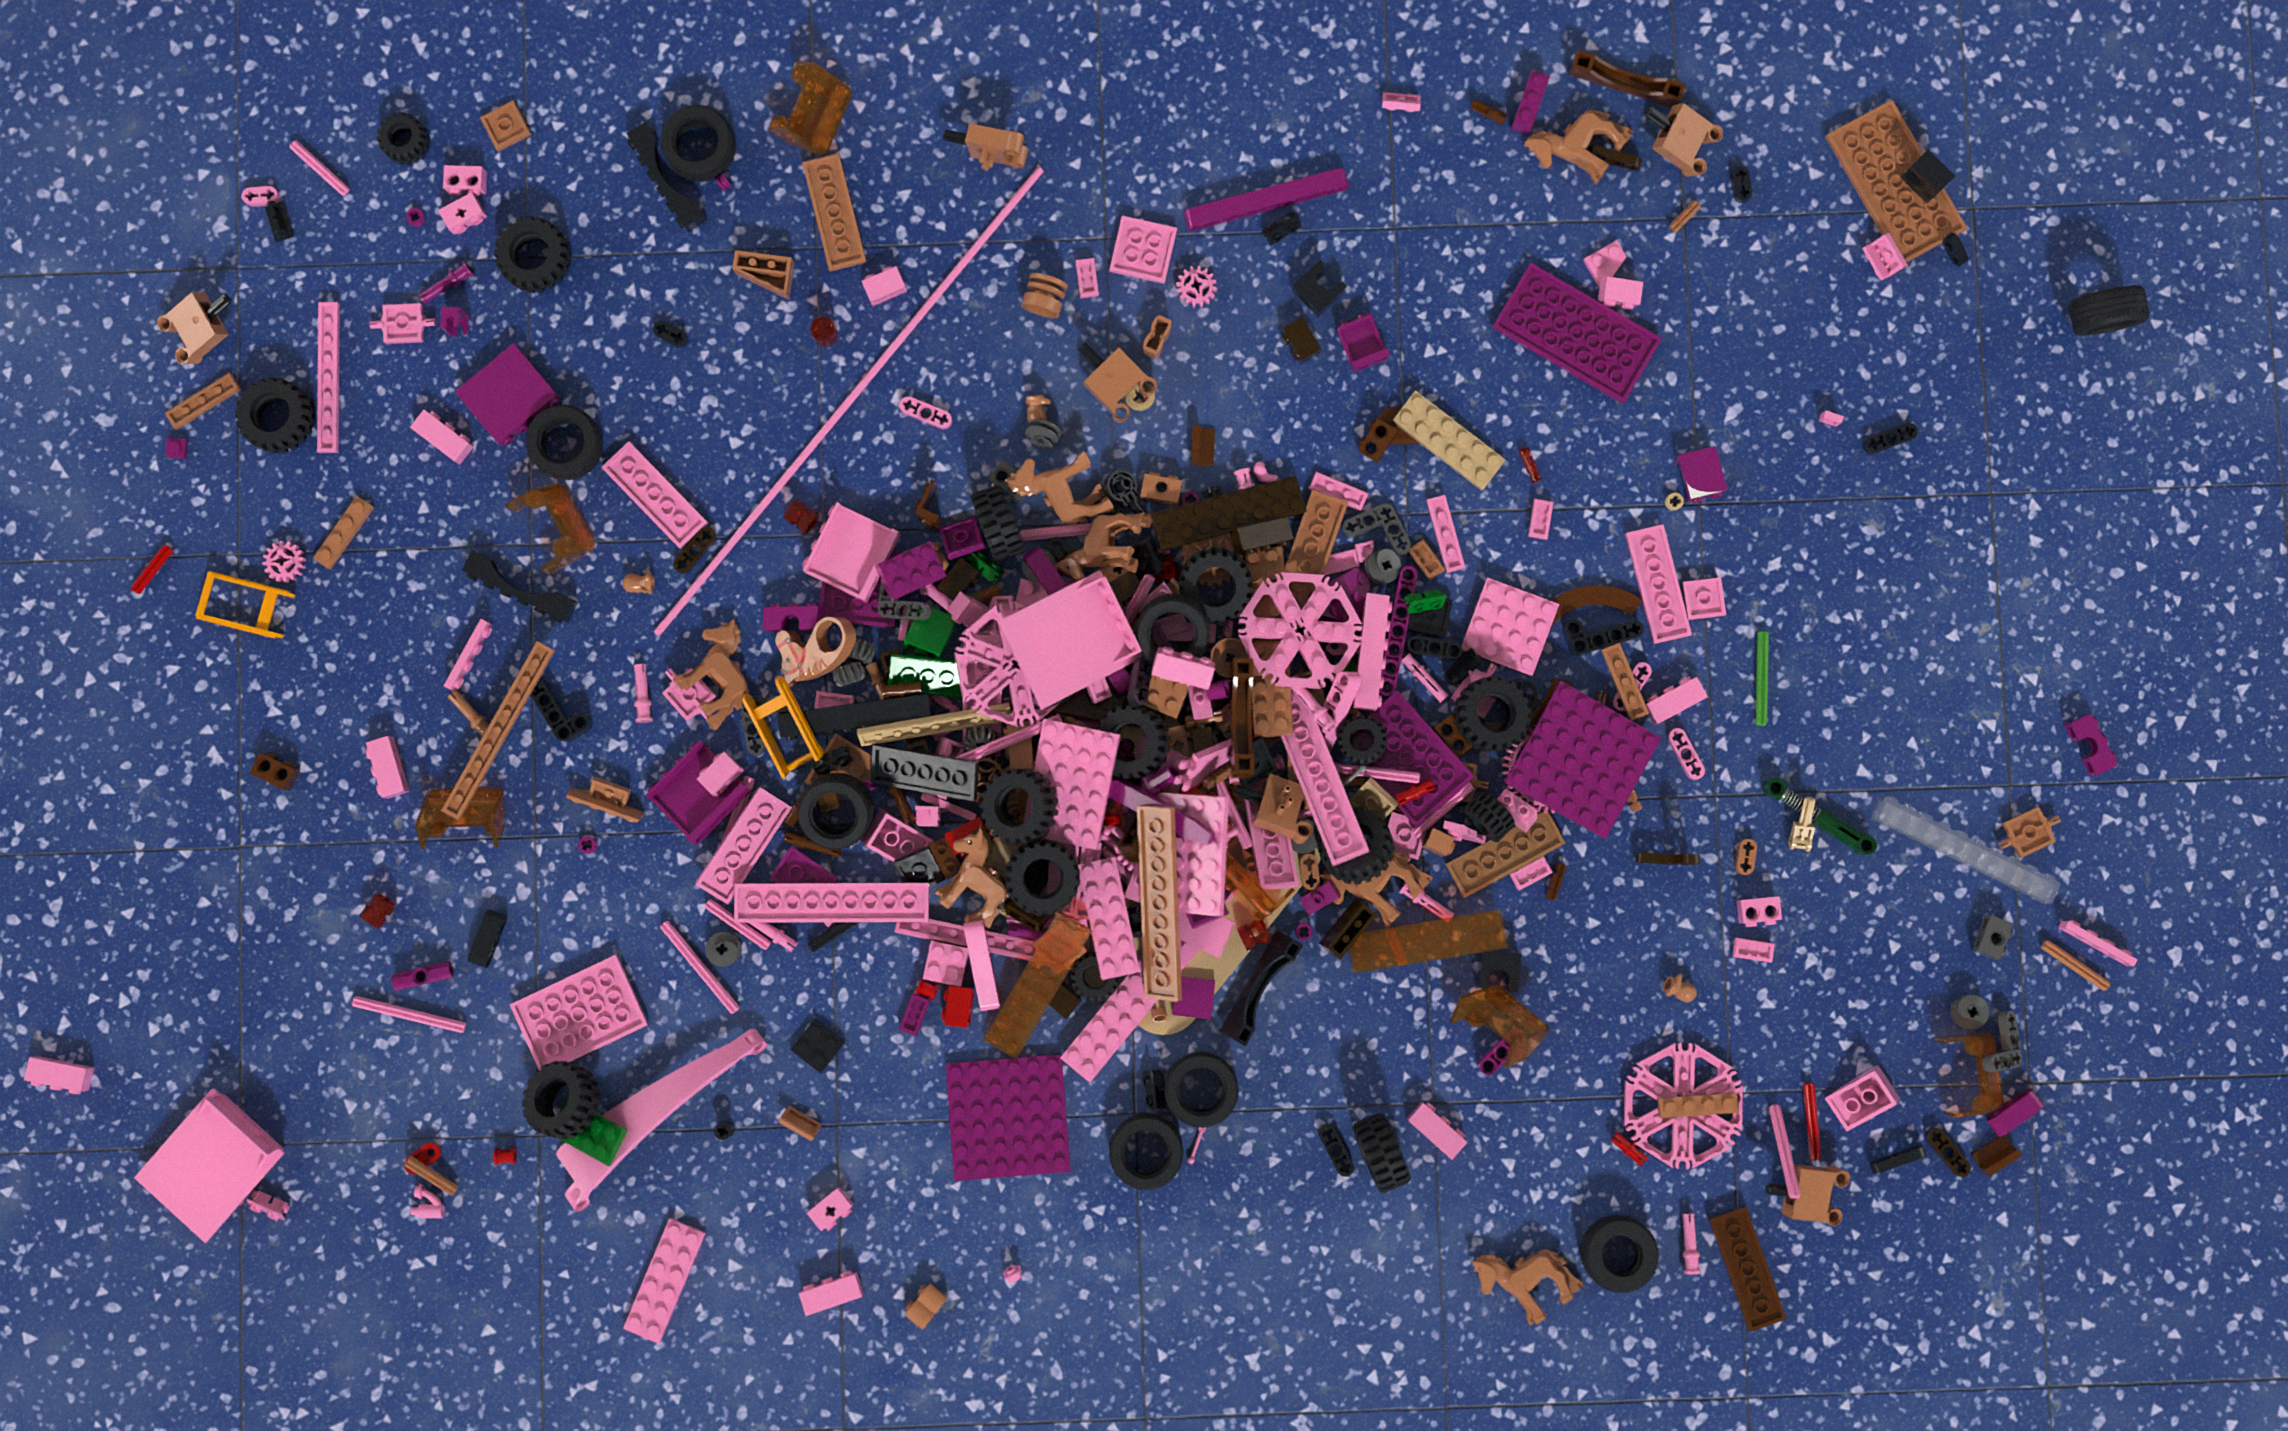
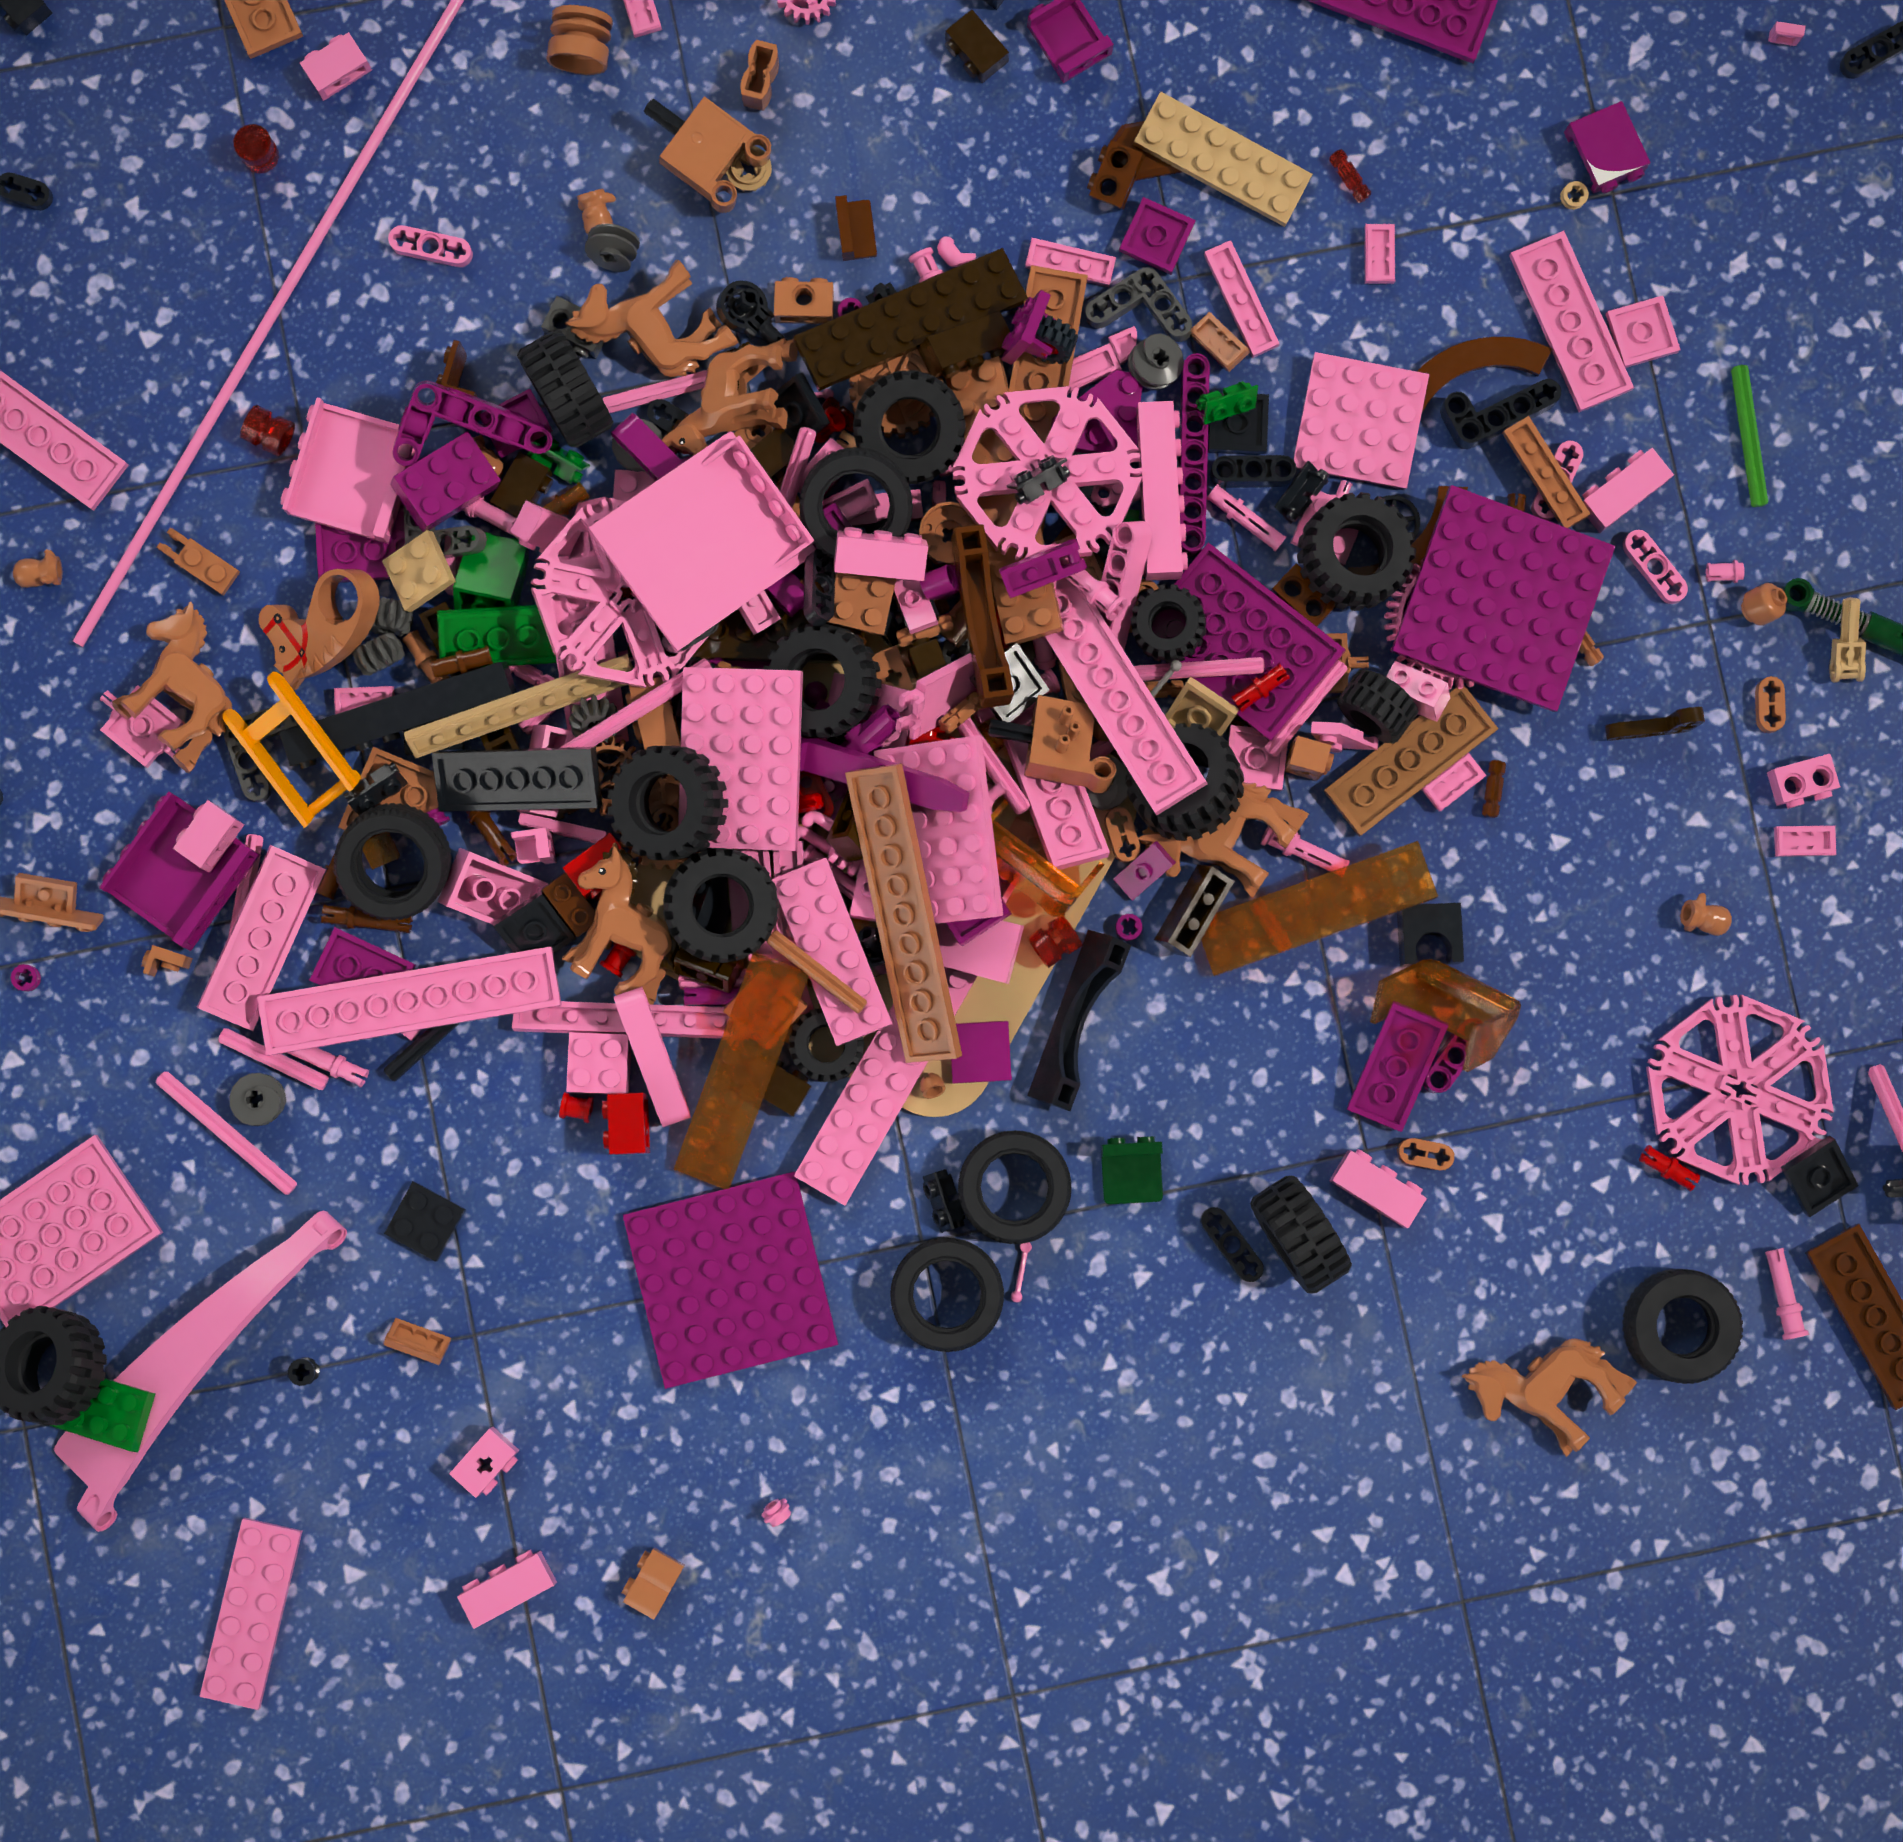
camera: 15 degrees left, 0 degrees up
(642, 703) = (72, 749): bright pink pin -> none
(682, 849) = (170, 959): none -> nougat bracket
(690, 565) = (133, 494): dark brown beam -> none
(744, 594) = (201, 563): none -> nougat hinge
(765, 270) = (152, 71): nougat wedge -> none
(777, 617) = (258, 586): magenta arch -> none
(883, 625) = (419, 571): none -> tan plate
(914, 1014) = (563, 1149): magenta plate -> none
(928, 526) = (460, 409): none -> magenta beam
(969, 898) = (617, 959): none -> red bush
(1097, 930) = (816, 971): none -> nougat axle
(1278, 746) = (1044, 654): none -> bright pink pin
(1279, 1091) = (1132, 1171): none -> dark green bracket
(1286, 635) = (1049, 472): none -> black hinge
(1286, 693) = (1042, 568): none -> magenta plate
(1309, 537) = (1039, 334): none -> magenta plate
(1397, 483) = (1157, 235): none -> magenta plate
(1462, 1053) = (1397, 1066): none -> magenta plate
(1470, 1117) = (1424, 1161): none -> nougat beam
(1697, 1105) = (1761, 1084): nougat plate -> none
(1725, 1171) = (1819, 1176): none -> black plate
(1731, 765) = (1725, 571): none -> bright pink pin
(1752, 791) = (1764, 604): none -> nougat head

